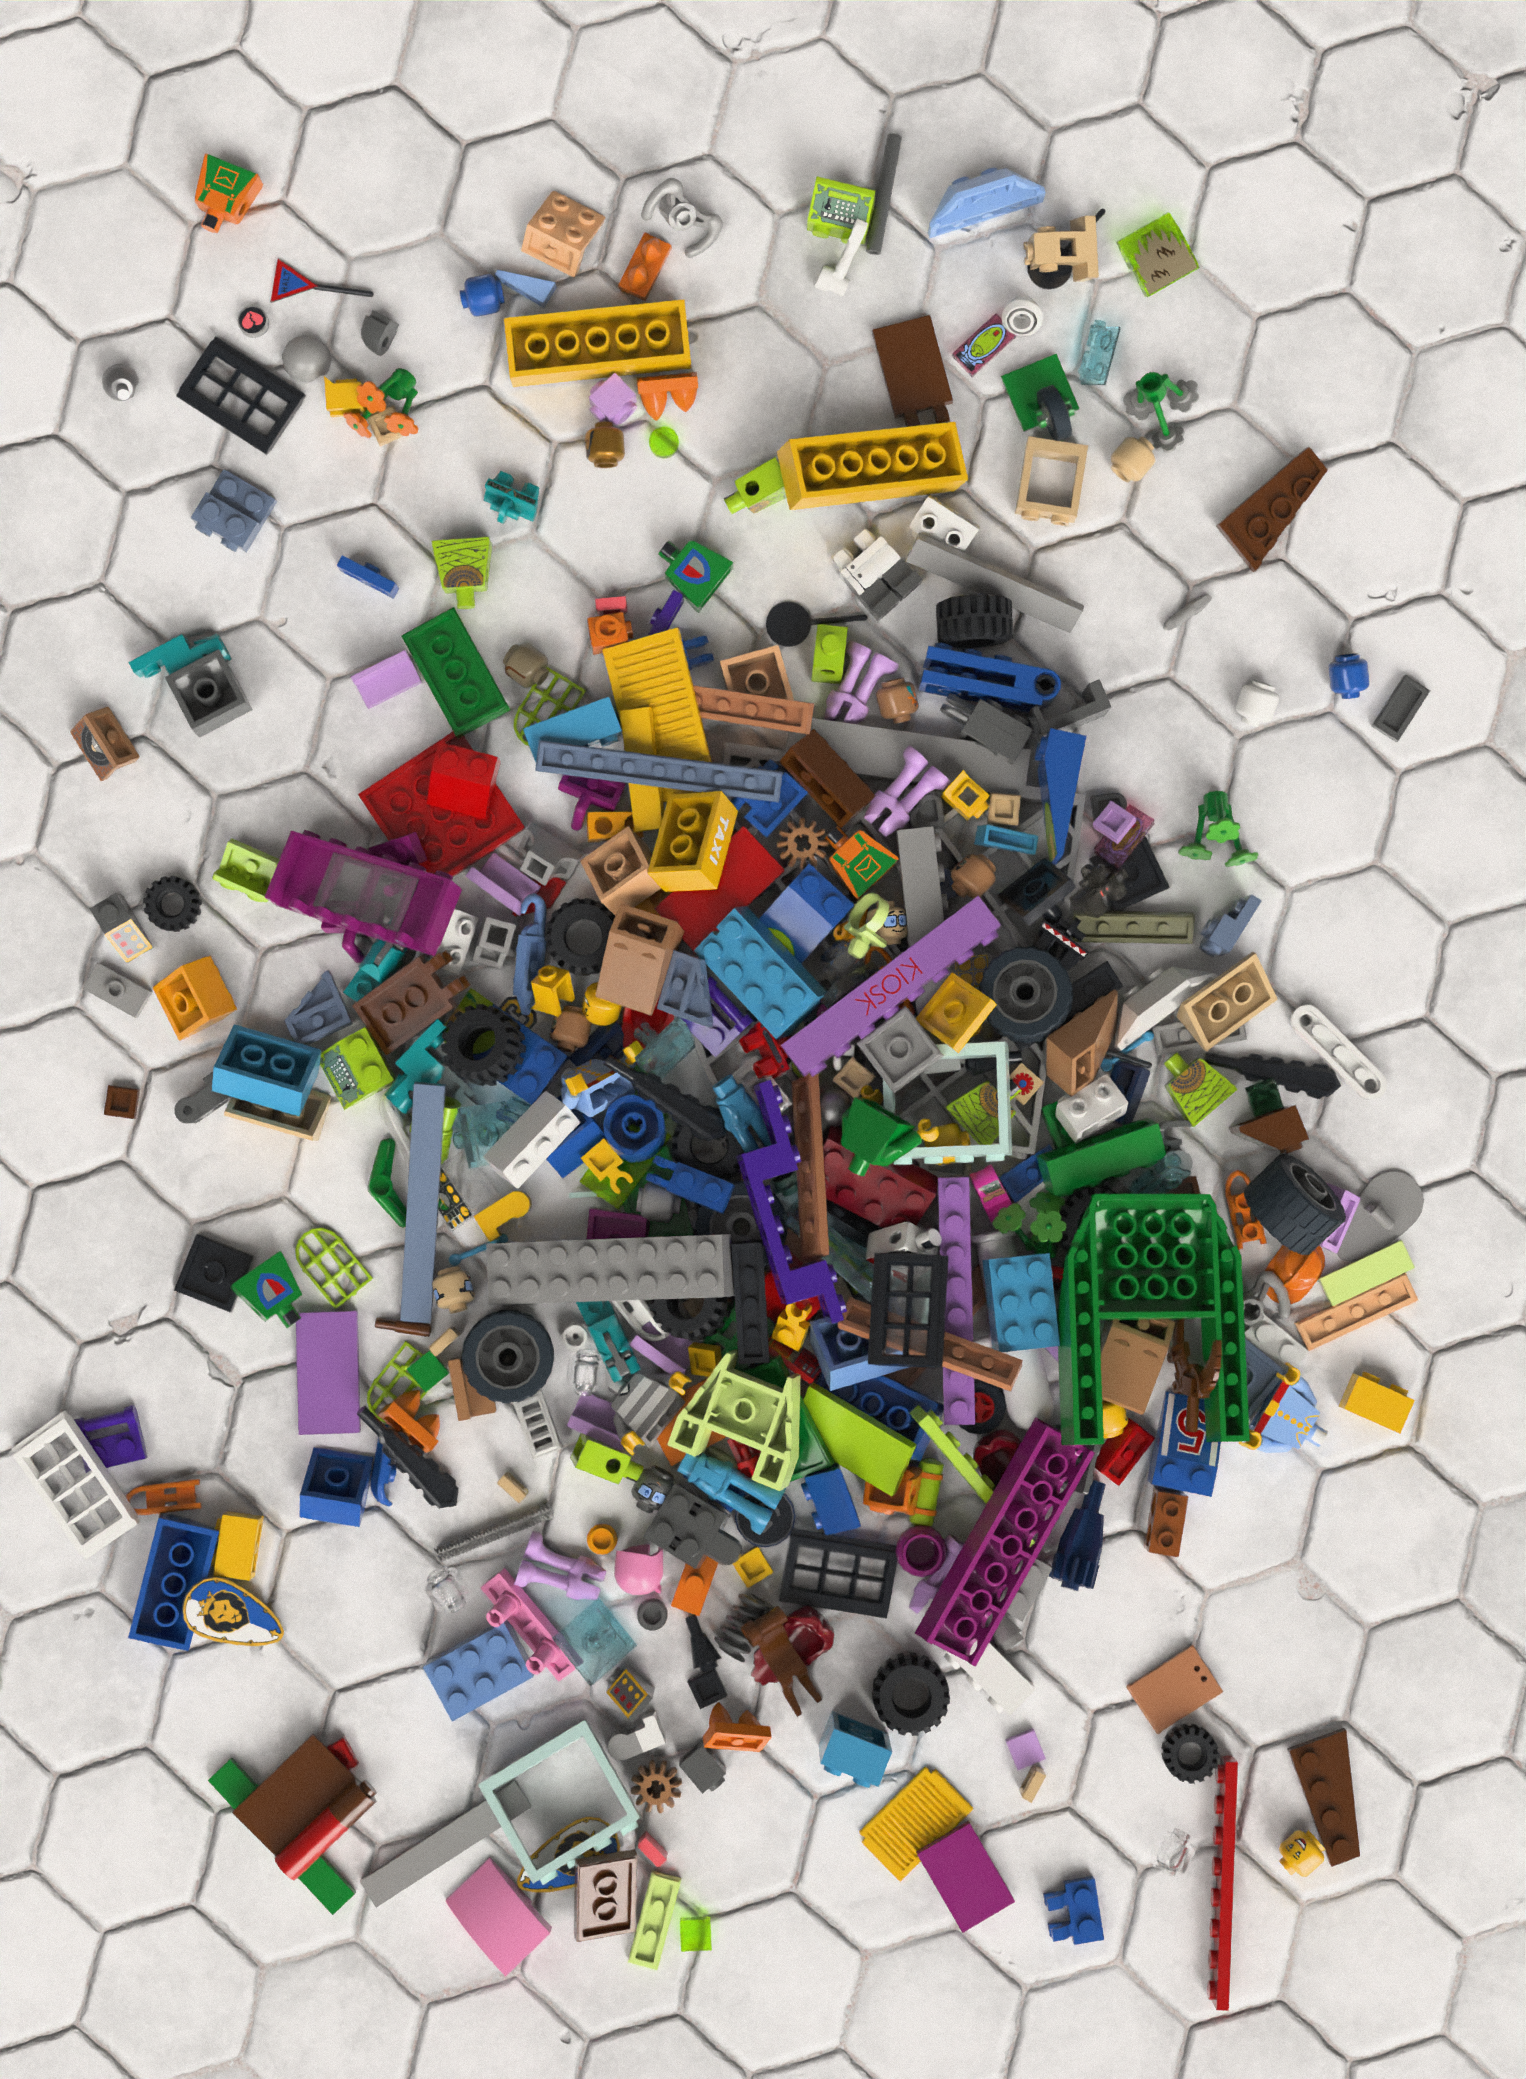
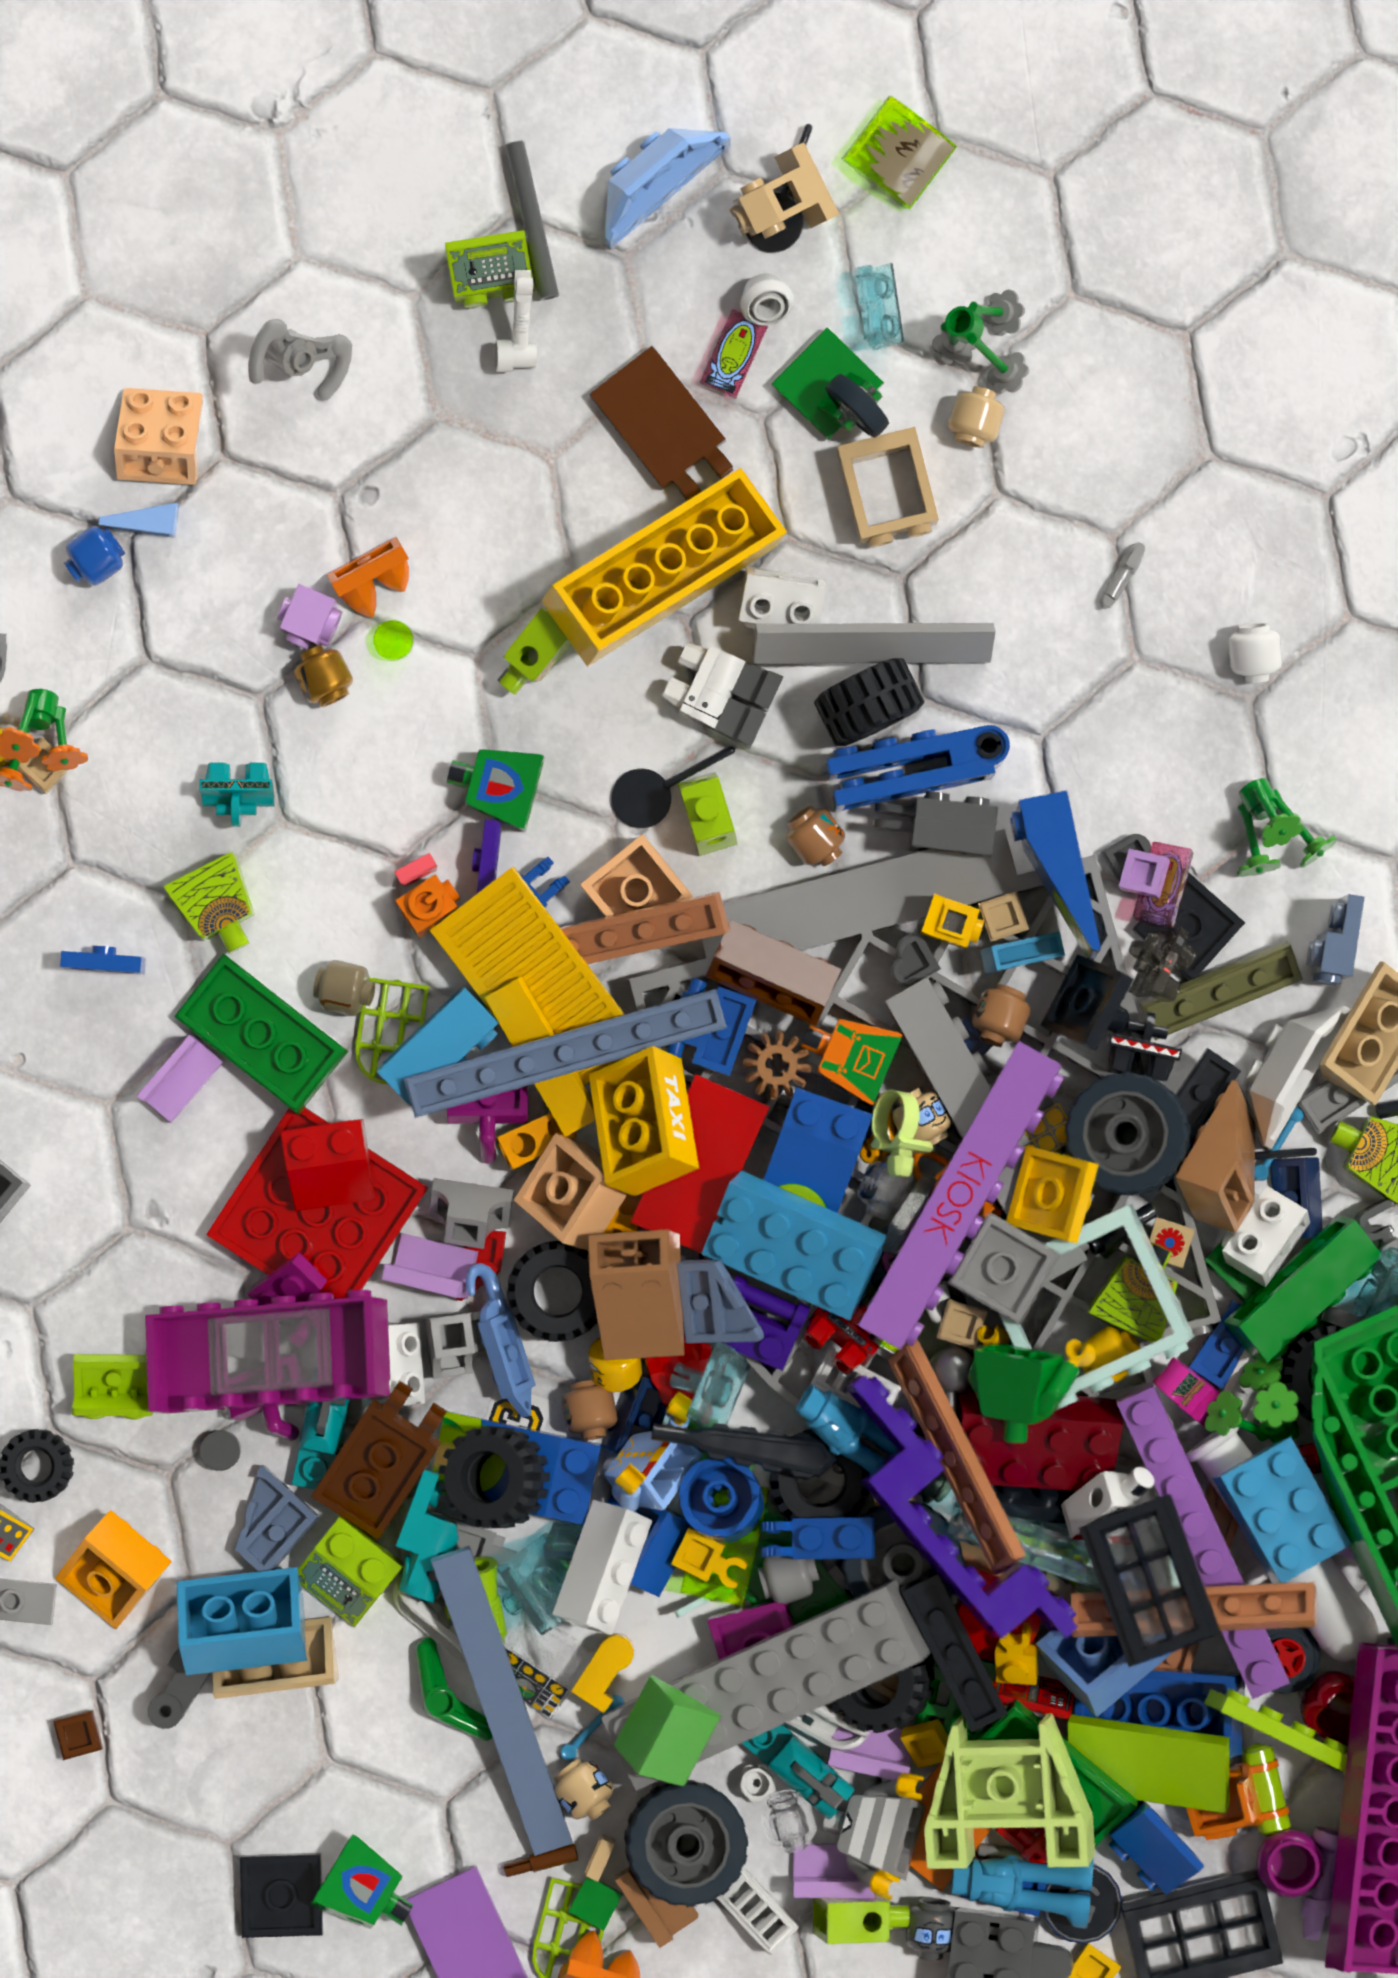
camera: 20 degrees left, 0 degrees up
(304, 948) = (220, 1450): none -> dark grey tile
(343, 1268) = (436, 1821): lime window -> none
(526, 1272) = (666, 1733): none -> bright green slope
(549, 987) = (541, 1370): yellow window -> none
(597, 343) = (261, 556): yellow brick -> none
(644, 266) = (277, 434): orange tile -> none
(857, 703) = (740, 867): lavender piece -> none
(899, 818) = (877, 972): lavender piece -> none
(1096, 707) = (1062, 740): dark grey panel -> none
(1264, 515) = (1168, 411): reddish brown wing -> none
(1348, 675) = (1352, 570): blue head -> none

